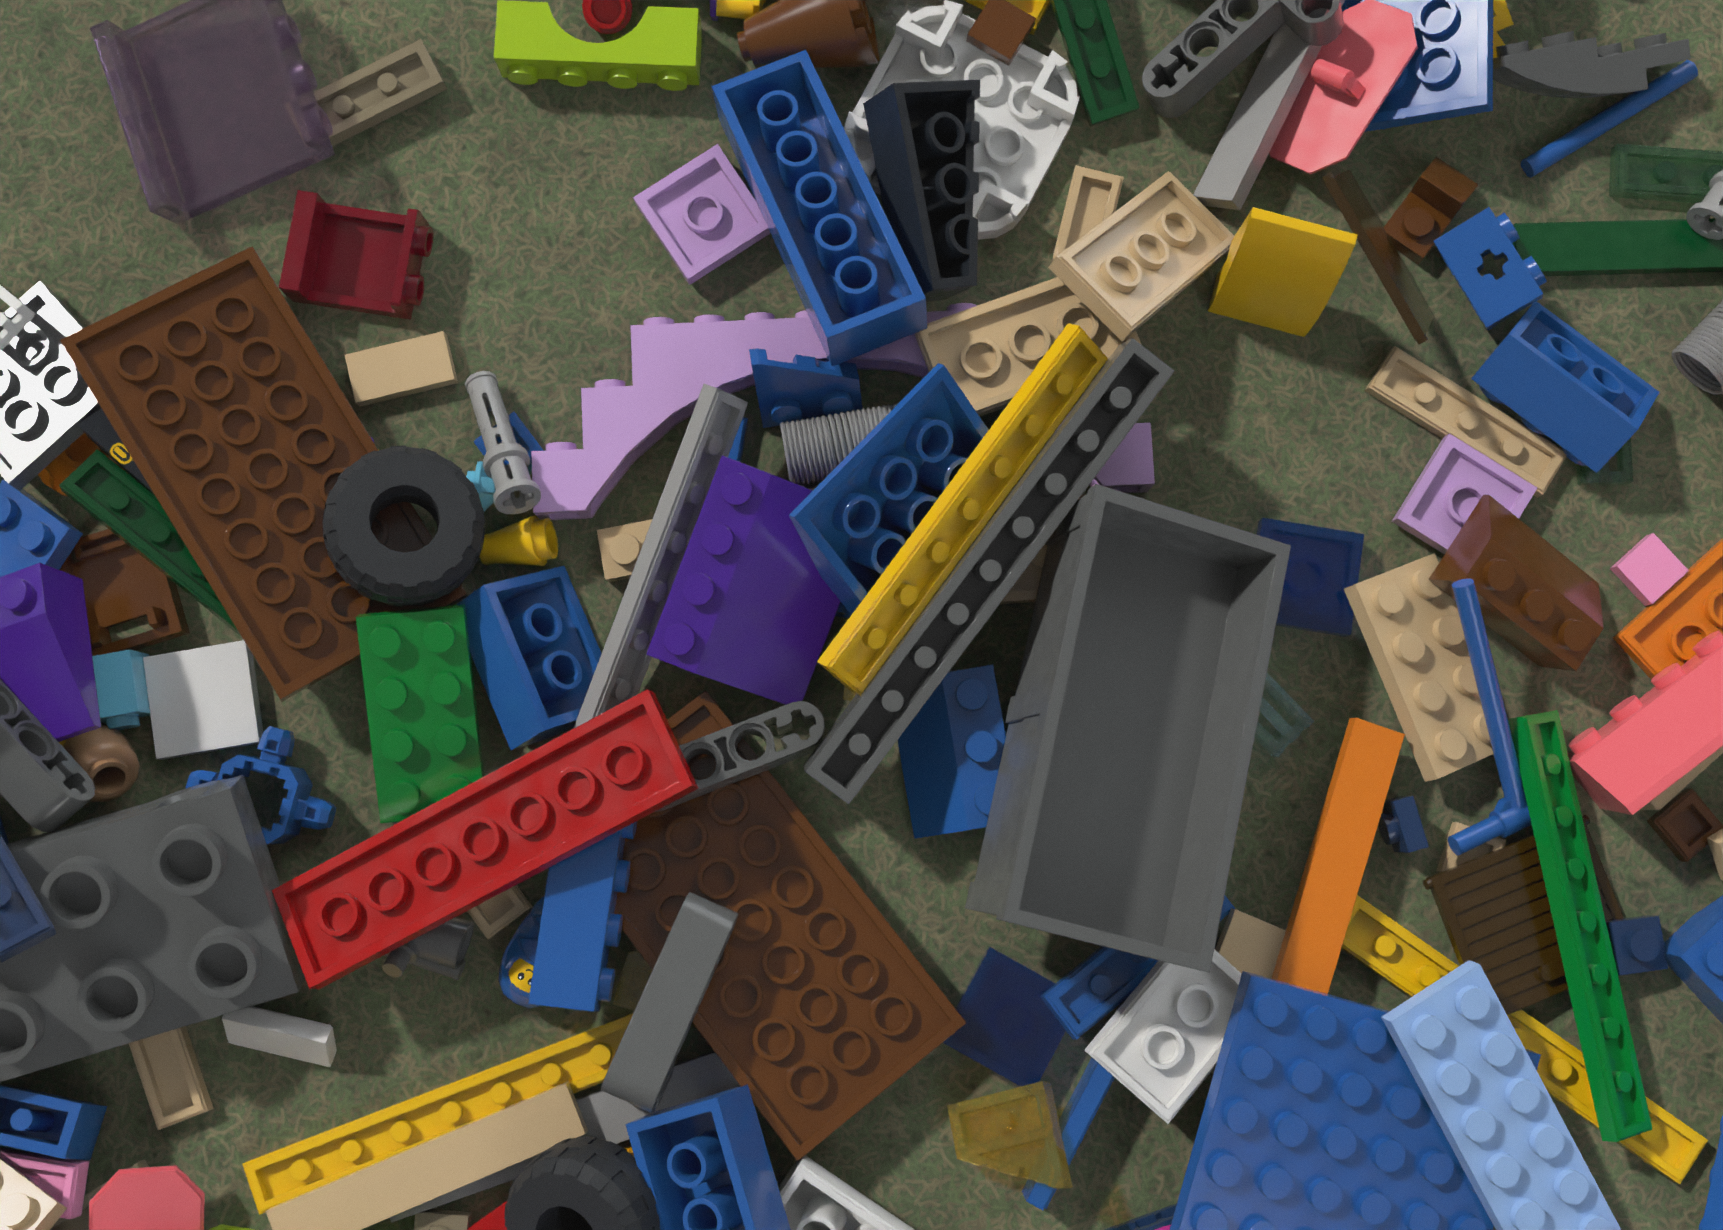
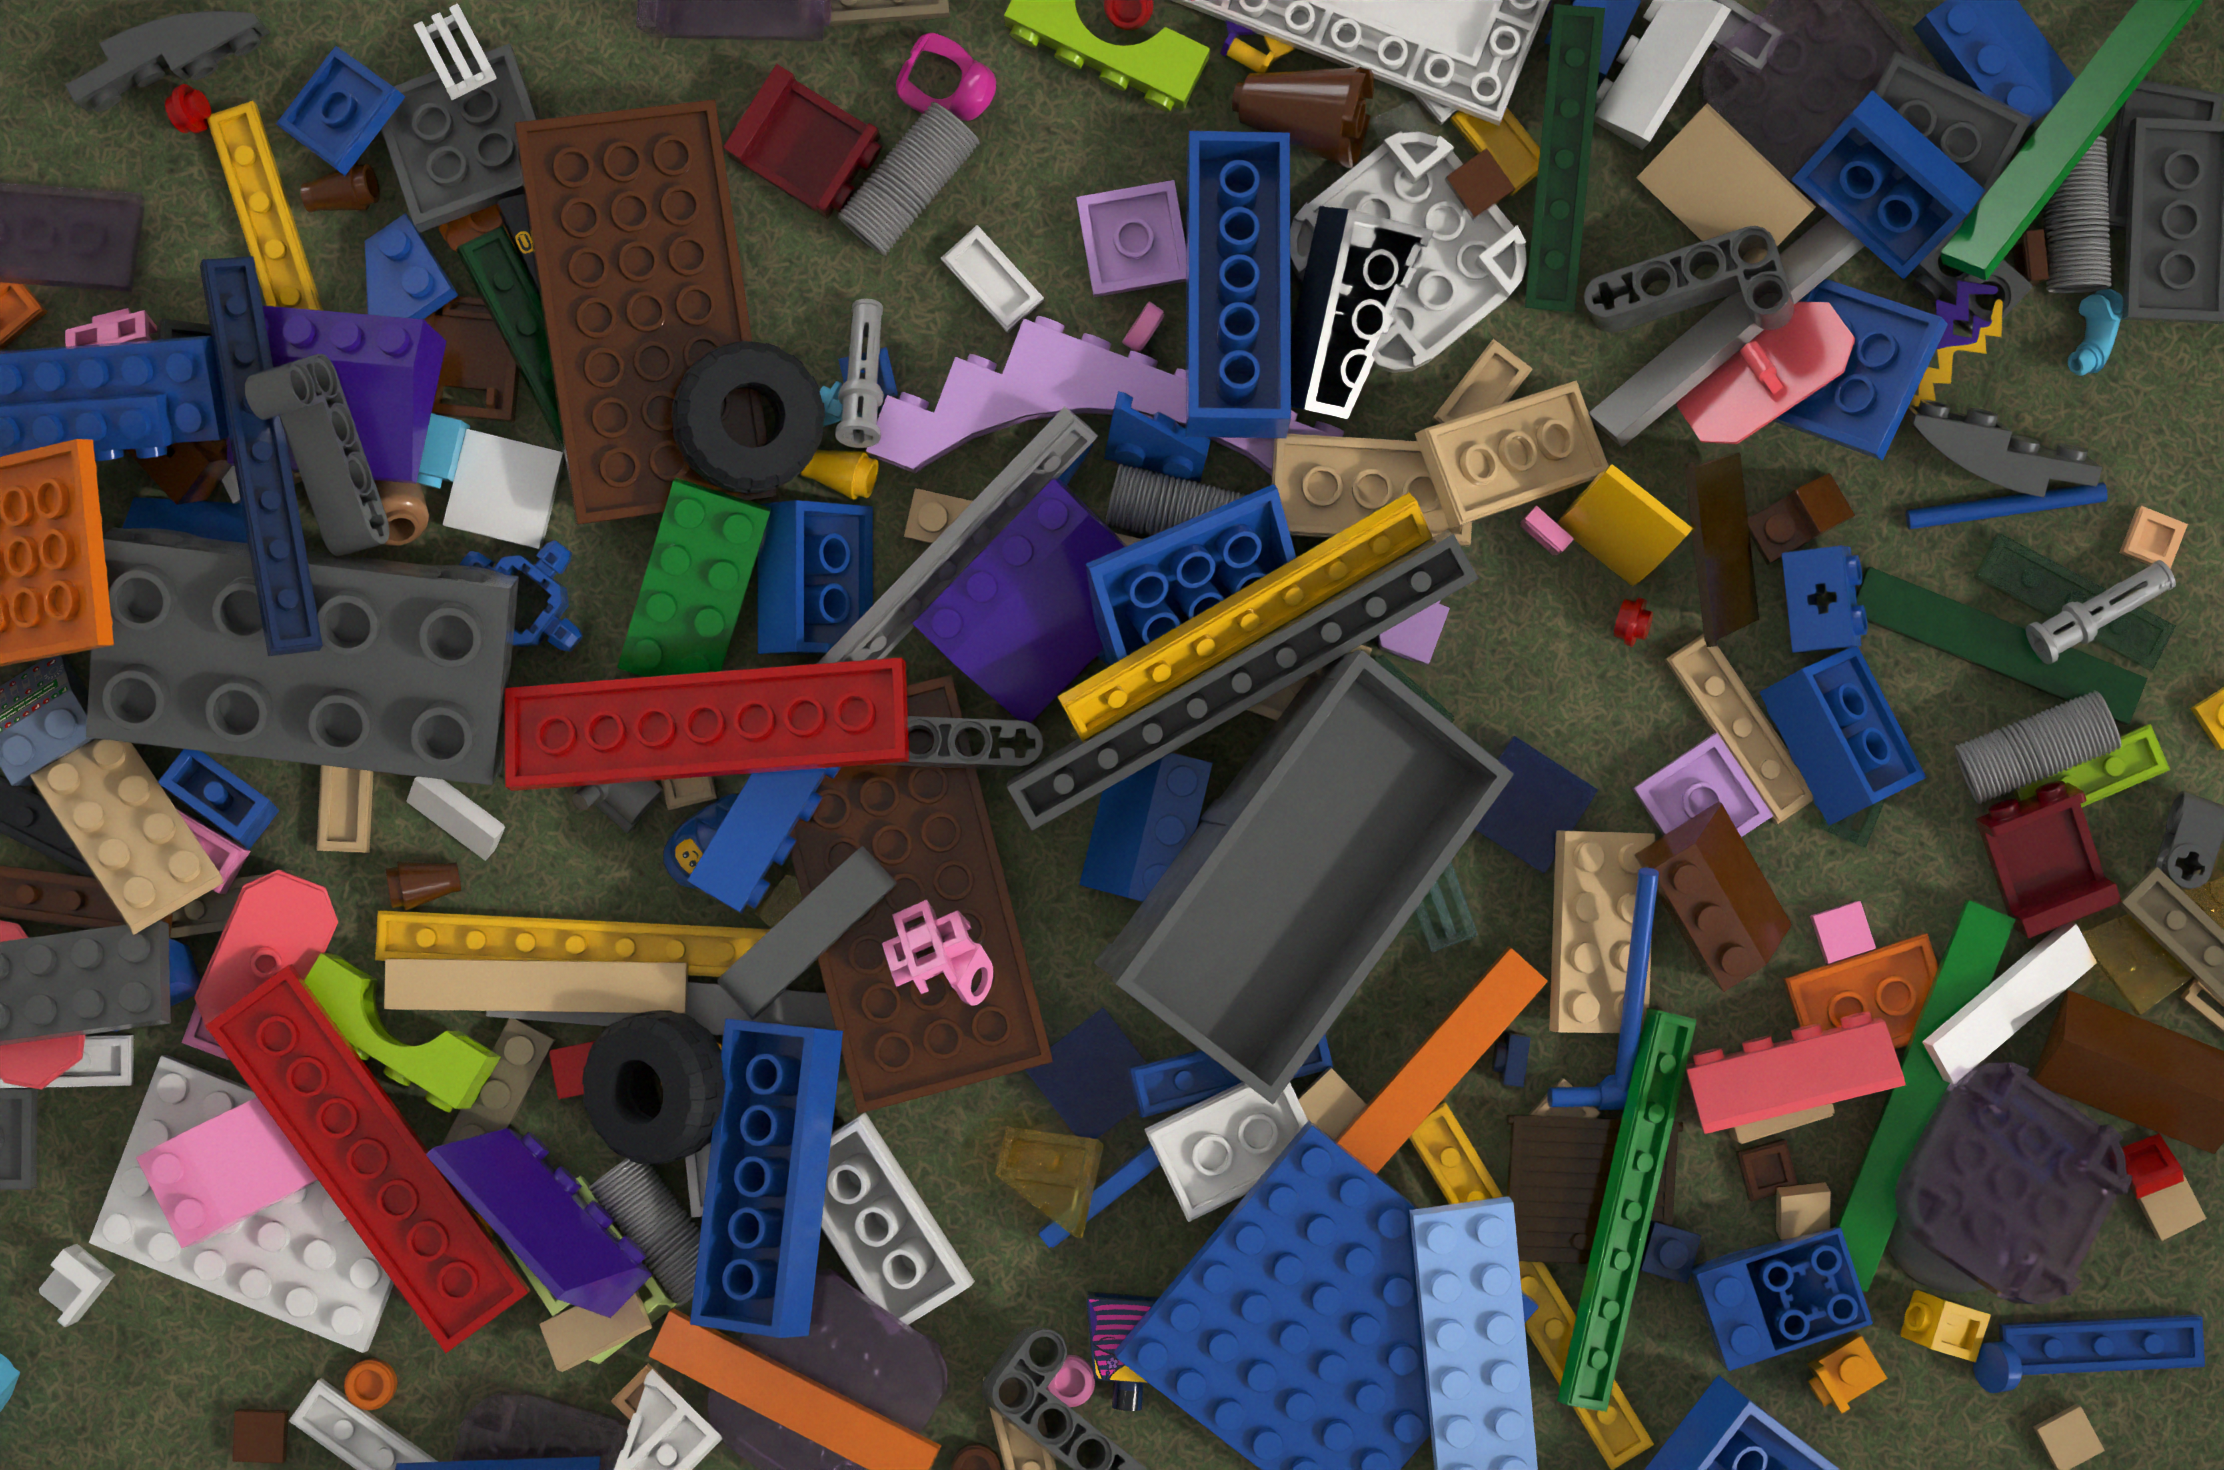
camera: 30 degrees right, 5 degrees up
(273, 1117) = (420, 882): none -> reddish brown cone
(401, 369) = (800, 263): tan tile -> none
(474, 237) = (918, 170): none -> light grey piece
(496, 146) = (975, 88): none -> dark pink piece
(587, 307) = (992, 278): none -> white tile
(748, 290) = (1143, 327): none -> bright pink tile
(828, 963) = (955, 957): none -> bright pink piece
(1205, 317) = (1546, 531): none -> bright pink tile
(1323, 365) = (1633, 621): none -> red plate

